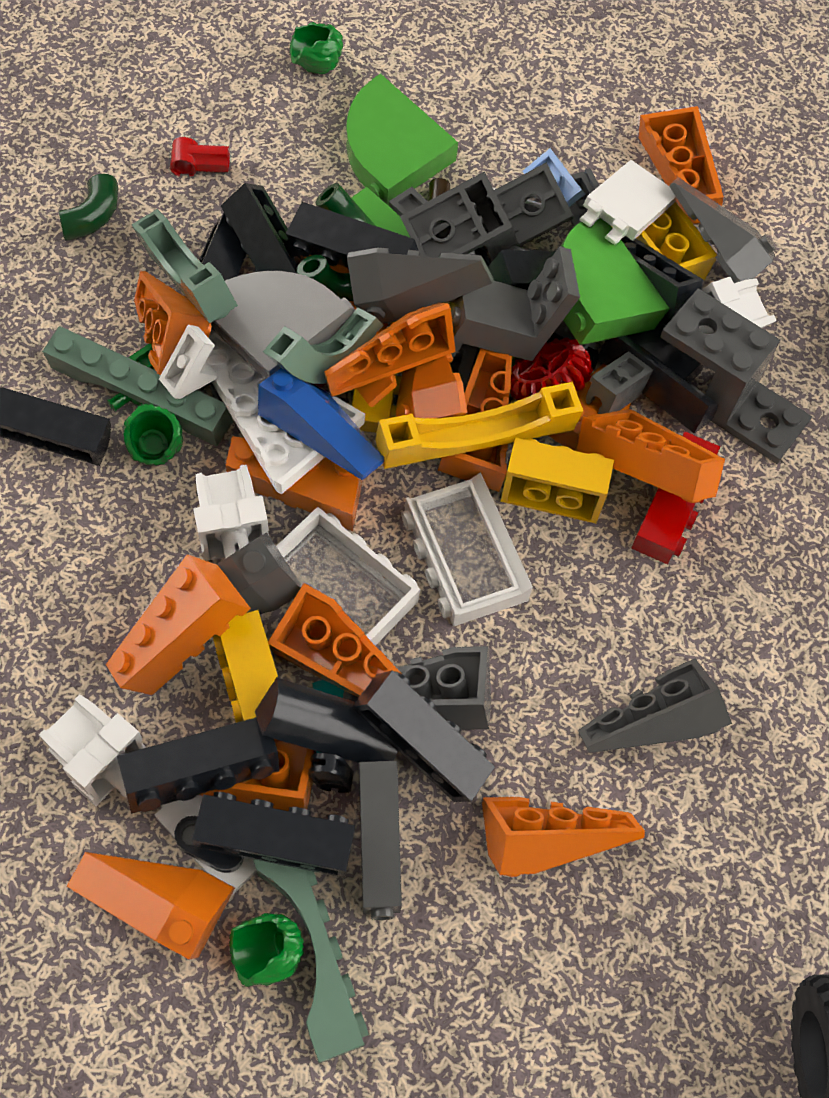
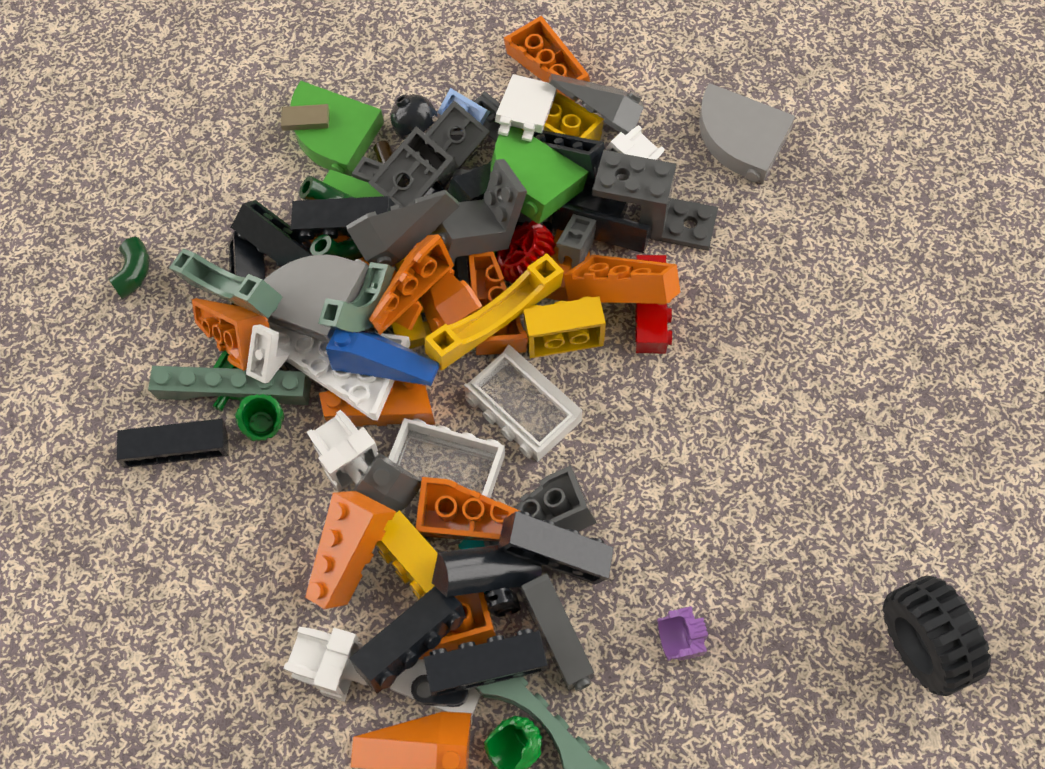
camera: 15 degrees left, 0 degrees up
(190, 157) = (187, 199): red piece -> none
(316, 47) = (243, 79): green hair -> none
(365, 116) = (305, 117): none -> dark tan tile
(495, 157) = (411, 112): none -> black cylinder
(530, 910) = (682, 634): none -> medium lavender hair
(539, 839) = (665, 584): orange wedge -> none
(678, 709) = (718, 452): dark grey wedge -> none

